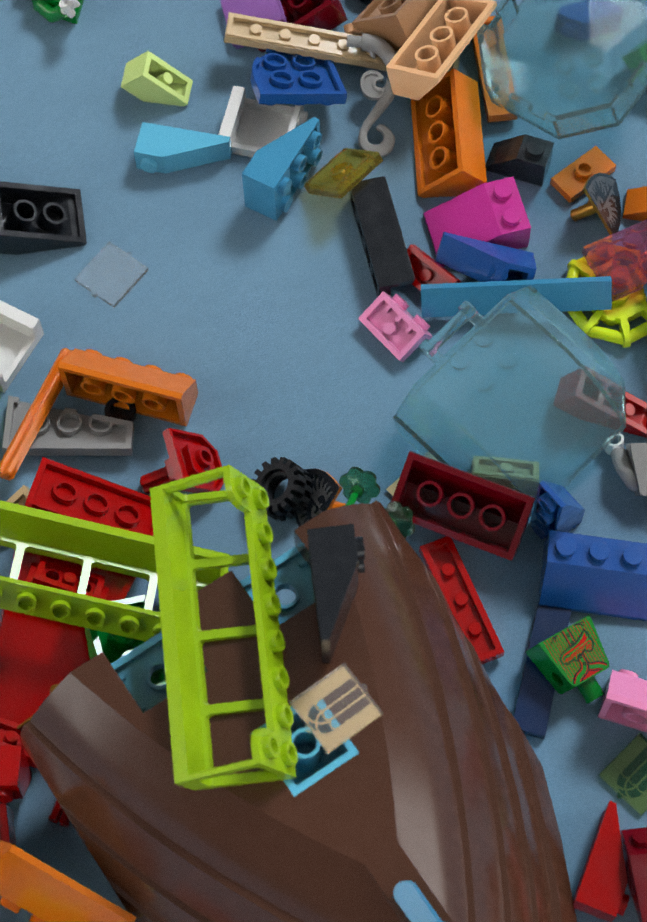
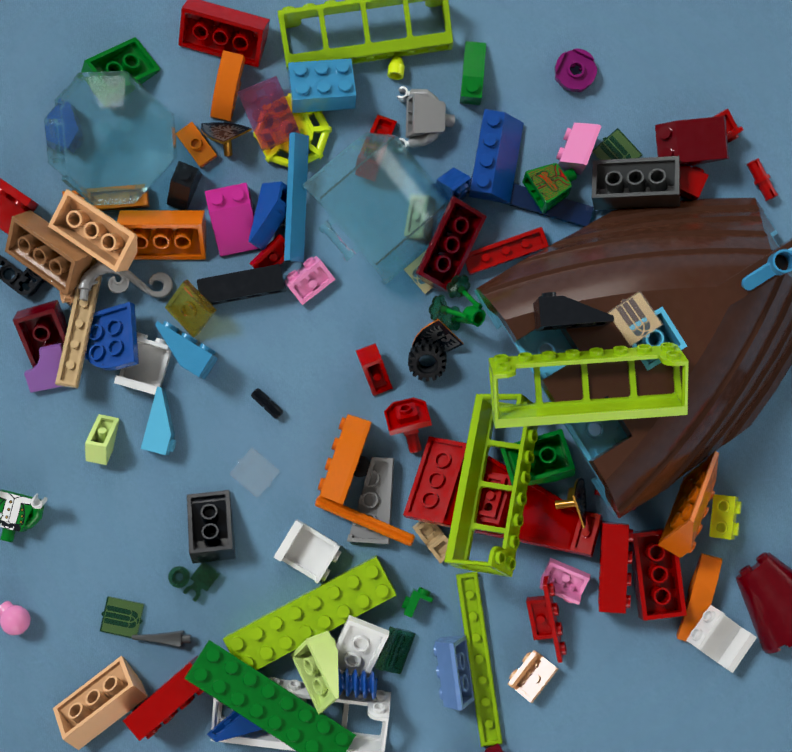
camera: 90 degrees left, 20 degrees up
(207, 286) = (263, 400): none -> black piece
(265, 418) = (374, 369): none -> red slope
(588, 792) = (636, 183): none -> dark grey slope

